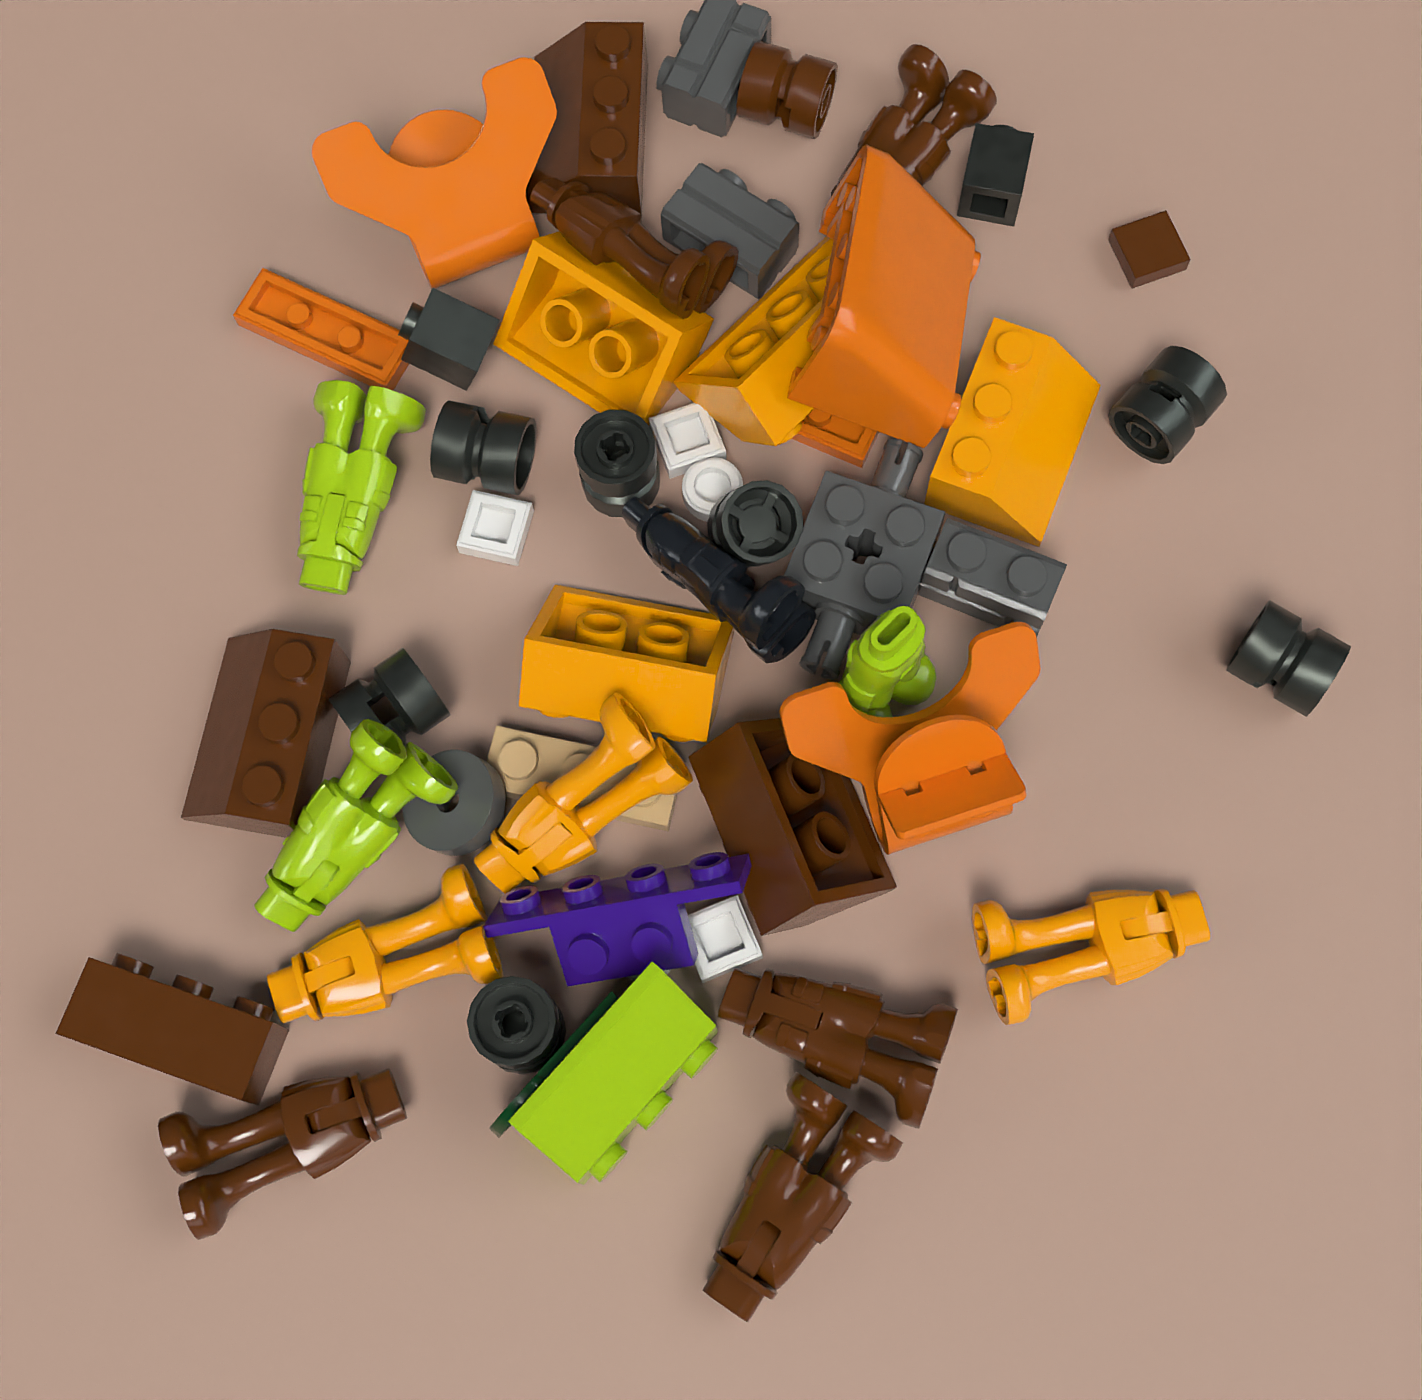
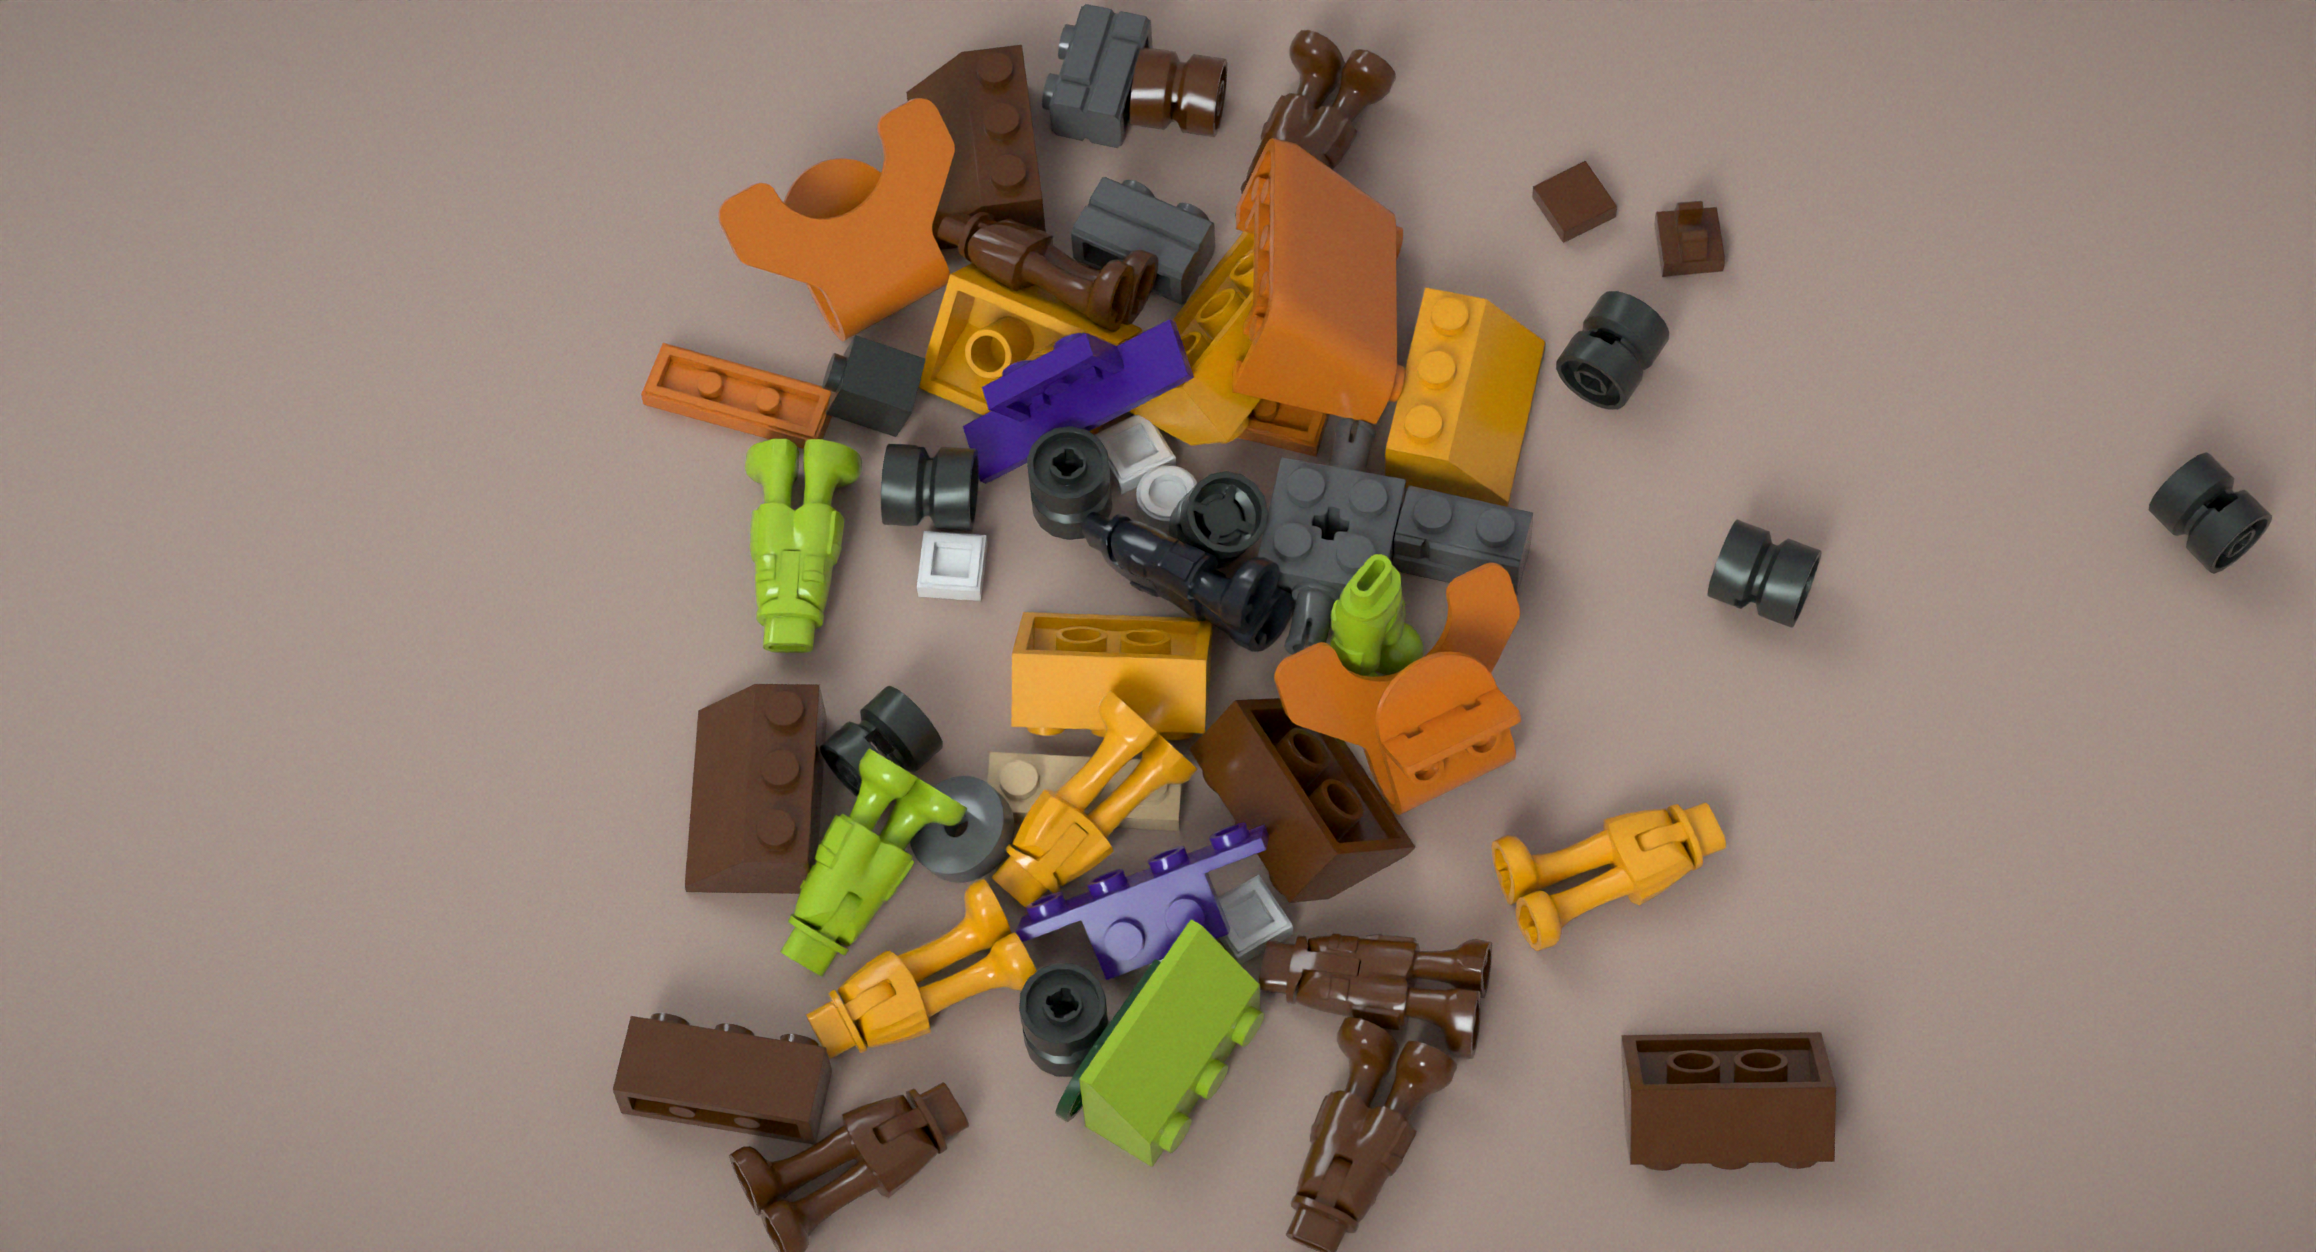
camera: 10 degrees left, 10 degrees down
(634, 371) = (1075, 386): none -> dark purple bracket
(995, 174) = (1405, 148): pearl dark grey brick -> none
(1177, 1218) = (1728, 1100): none -> reddish brown slope
(1255, 303) = (1689, 240): none -> reddish brown tile

